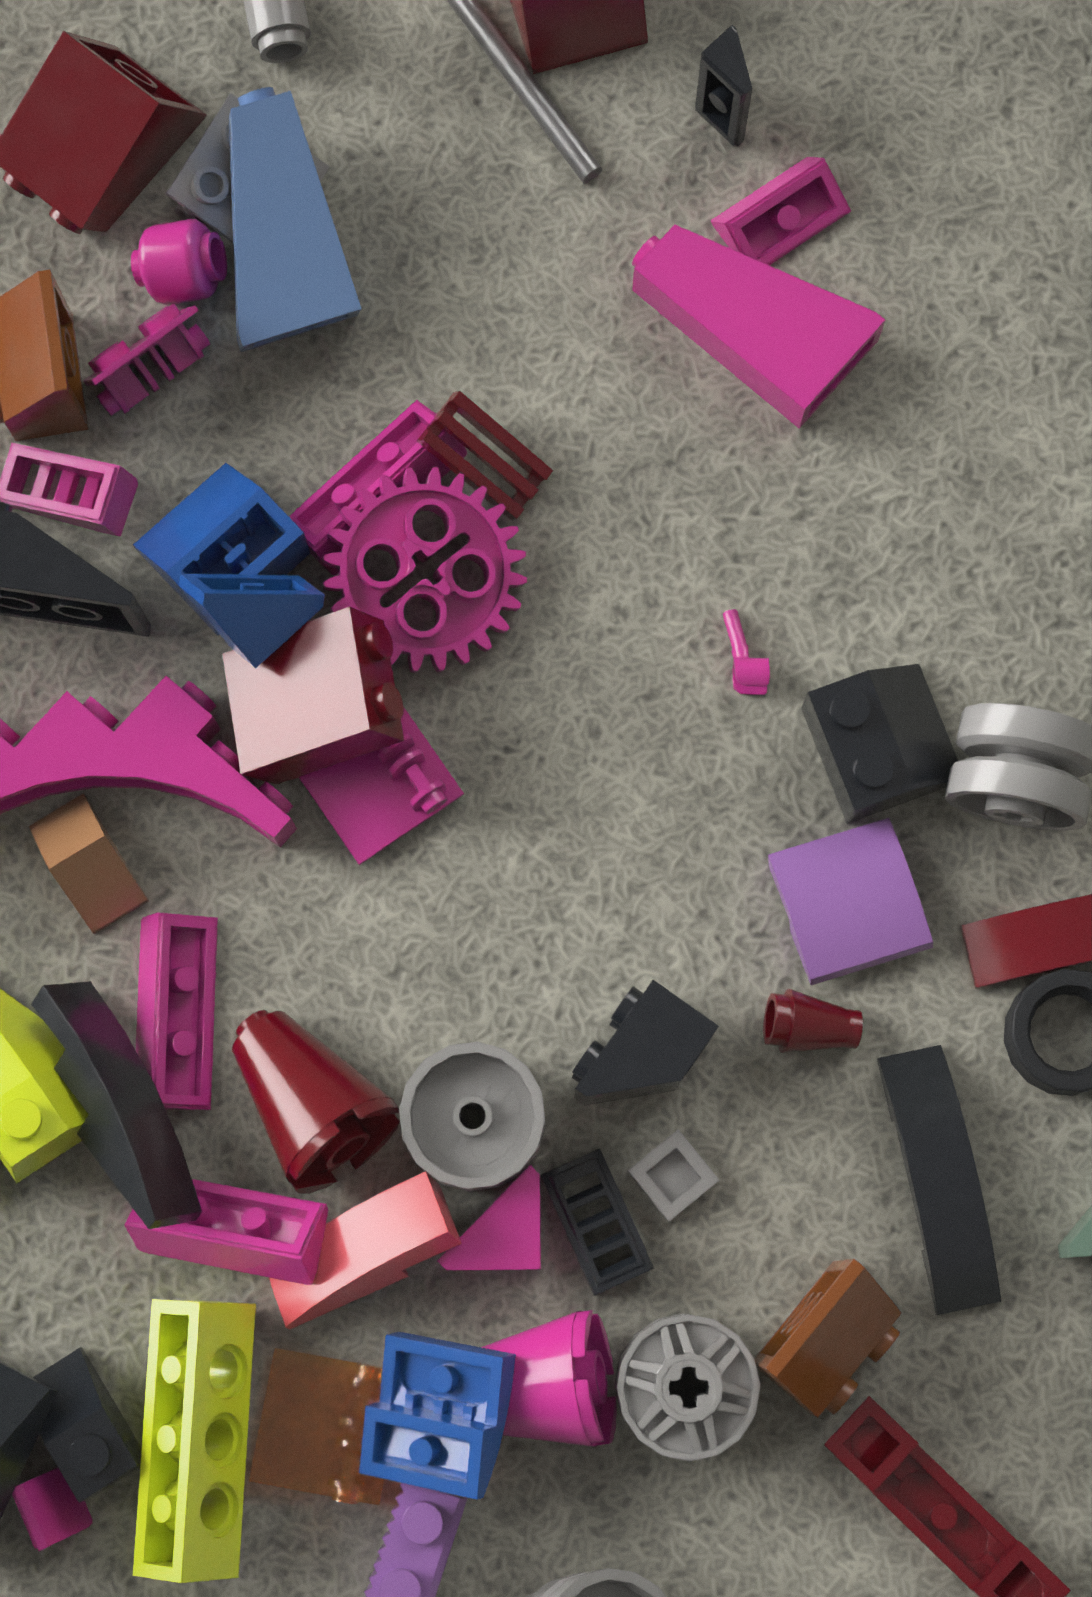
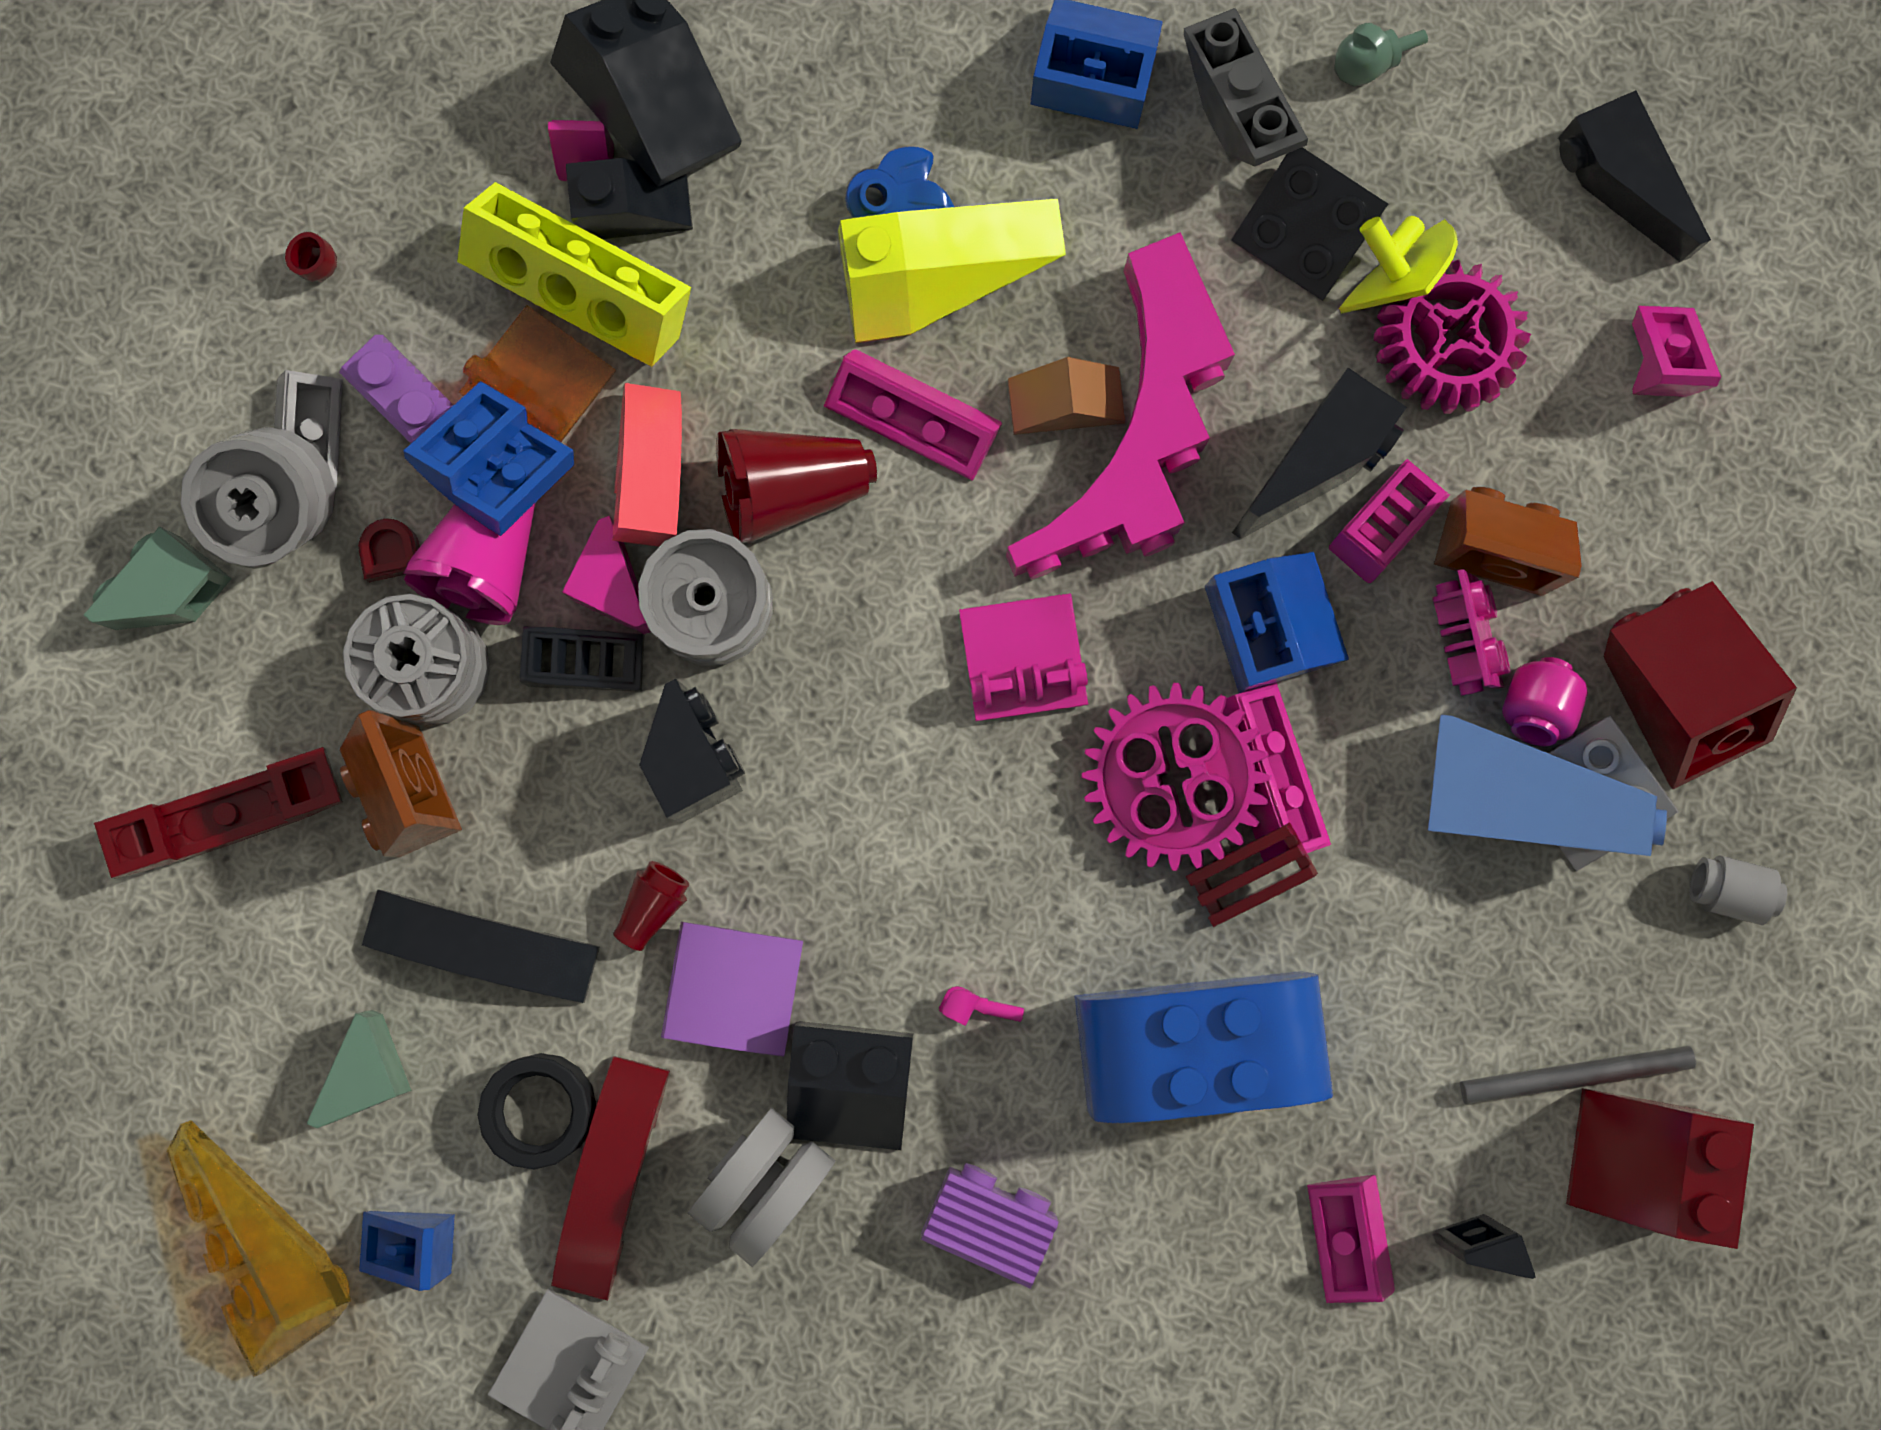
camera: 115 degrees right, 5 degrees up
(126, 1116) = (849, 332): black slope -> none
(242, 1233) = (720, 374): dark pink slope -> none
(253, 610) = (1201, 612): blue slope -> none
(315, 698) = (1108, 631): brick -> none
(583, 1491) = (386, 549): none -> dark red tile
(673, 1175) = (589, 737): light grey tile -> none
(676, 420) = (1203, 1048): none -> blue brick
(755, 320) = (1261, 1167): dark pink slope -> none
(943, 543) = (991, 1225): none -> medium lavender brick

